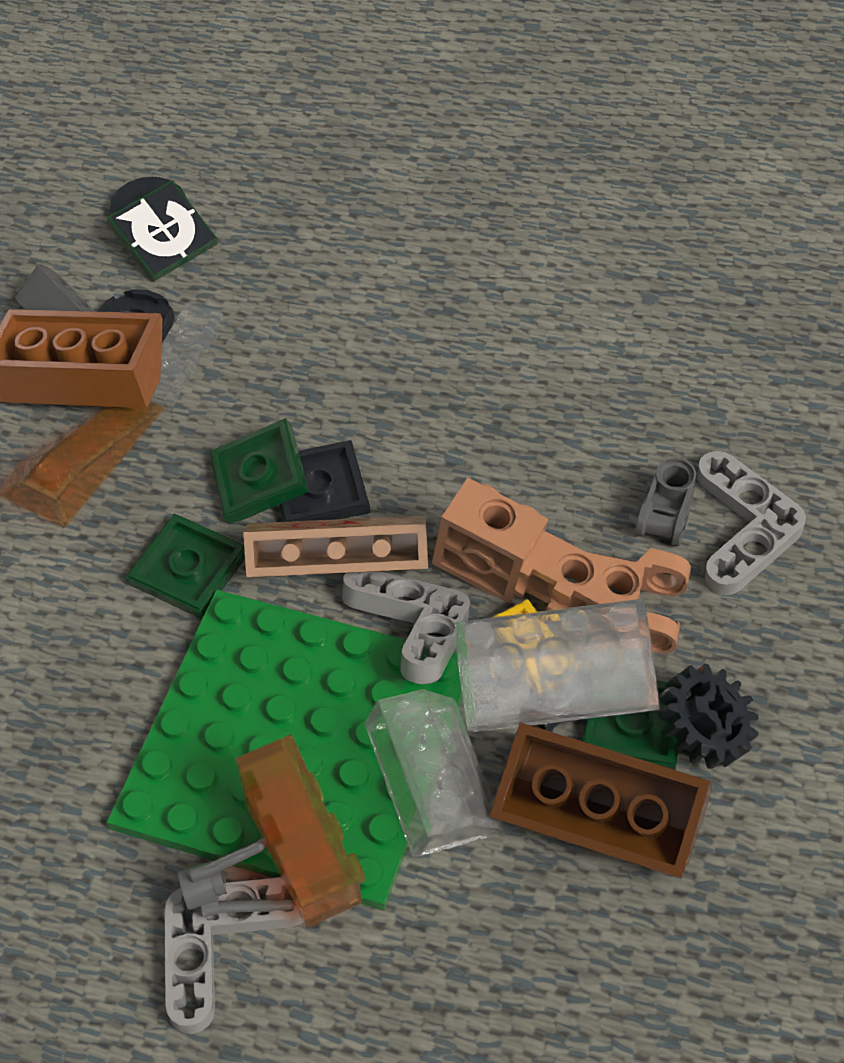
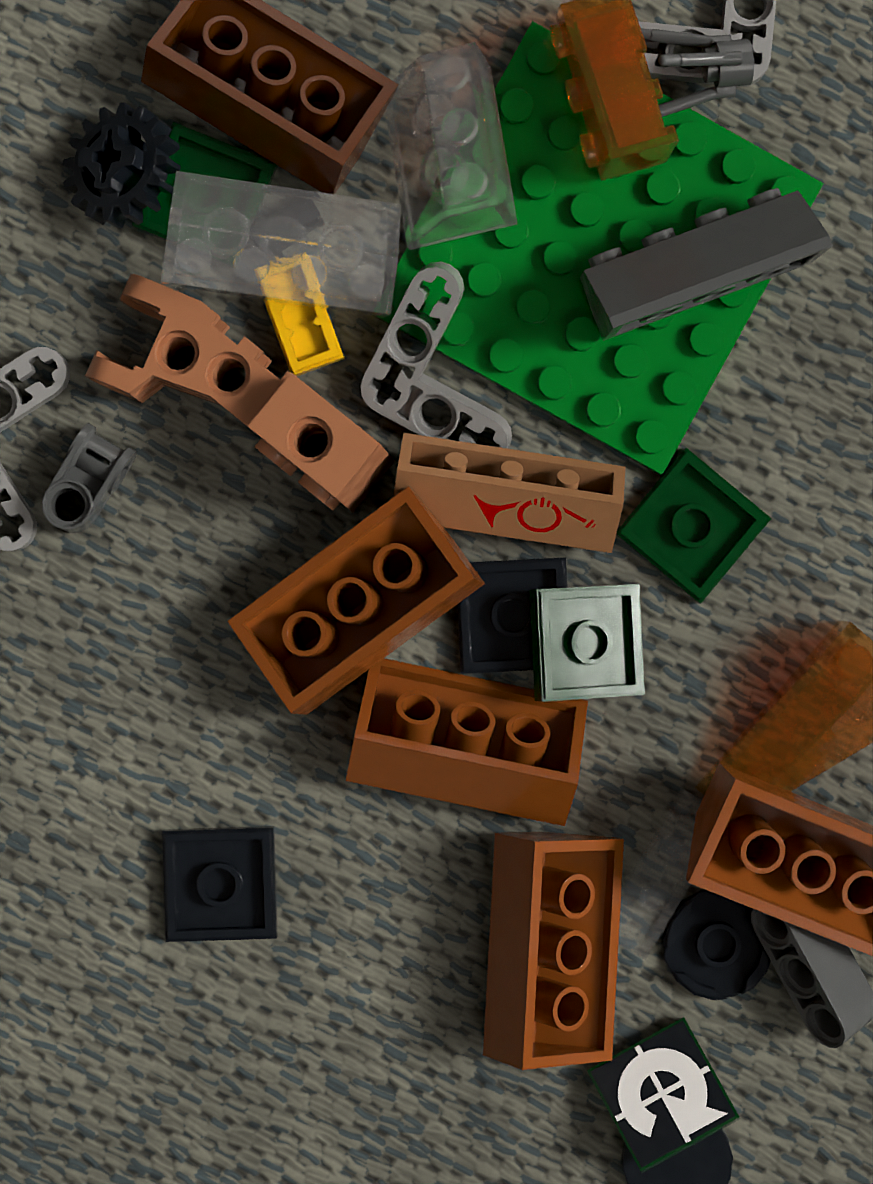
camera: 170 degrees left, 35 degrees up
(201, 706) = (702, 263): none -> dark grey slope
(253, 292) = (553, 949): none -> dark orange slope
(340, 398) = (468, 742): none -> dark orange slope
(434, 448) = (355, 602): none -> dark orange slope
(499, 297) = (219, 884): none -> black tile

